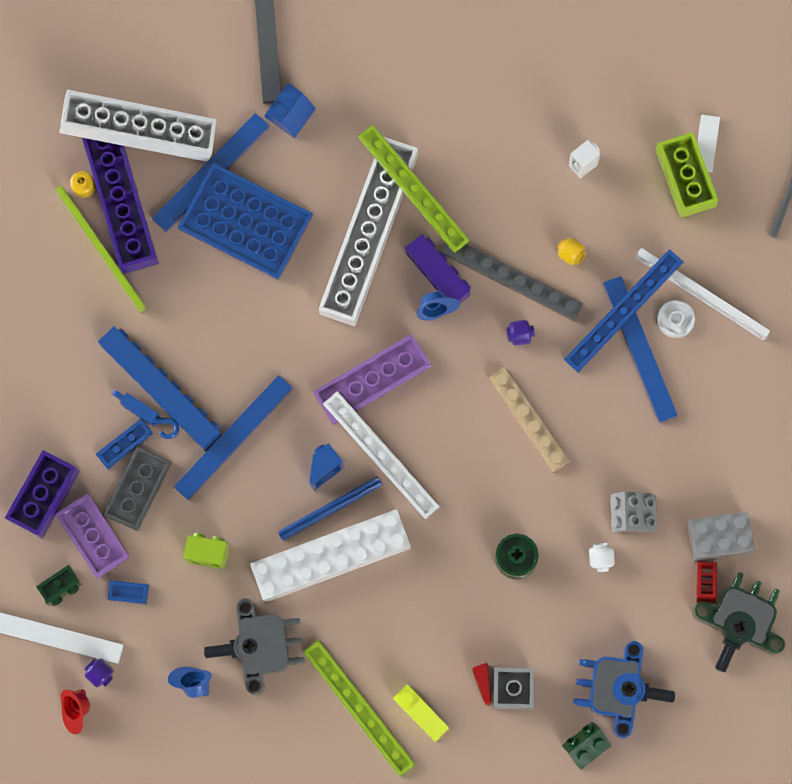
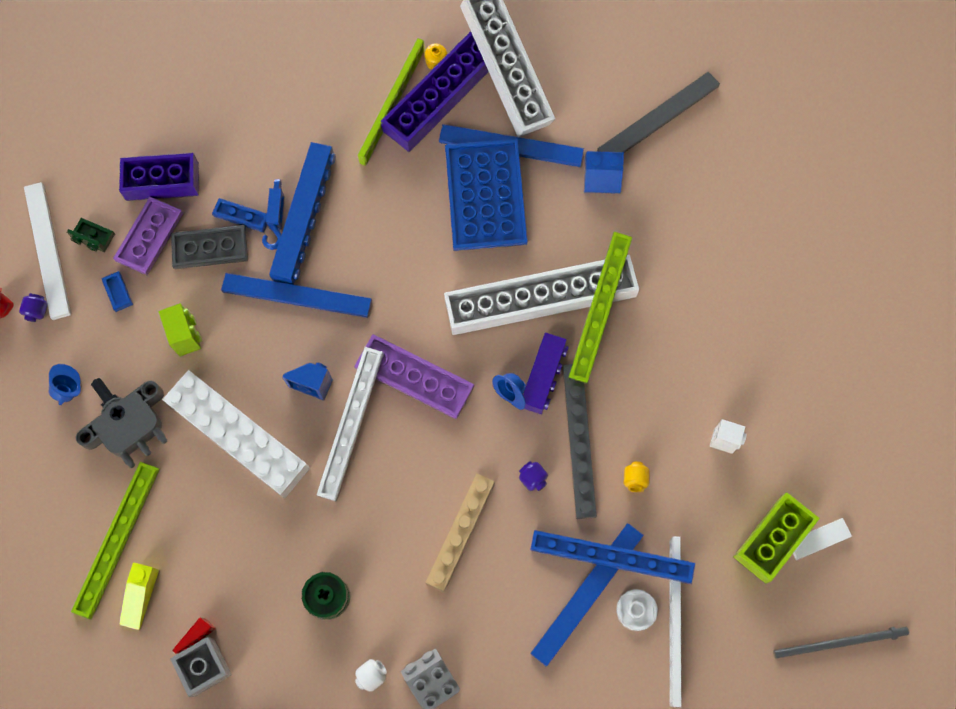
camera: 55 degrees right, 5 degrees down
(330, 508) = (280, 409): blue axle -> none

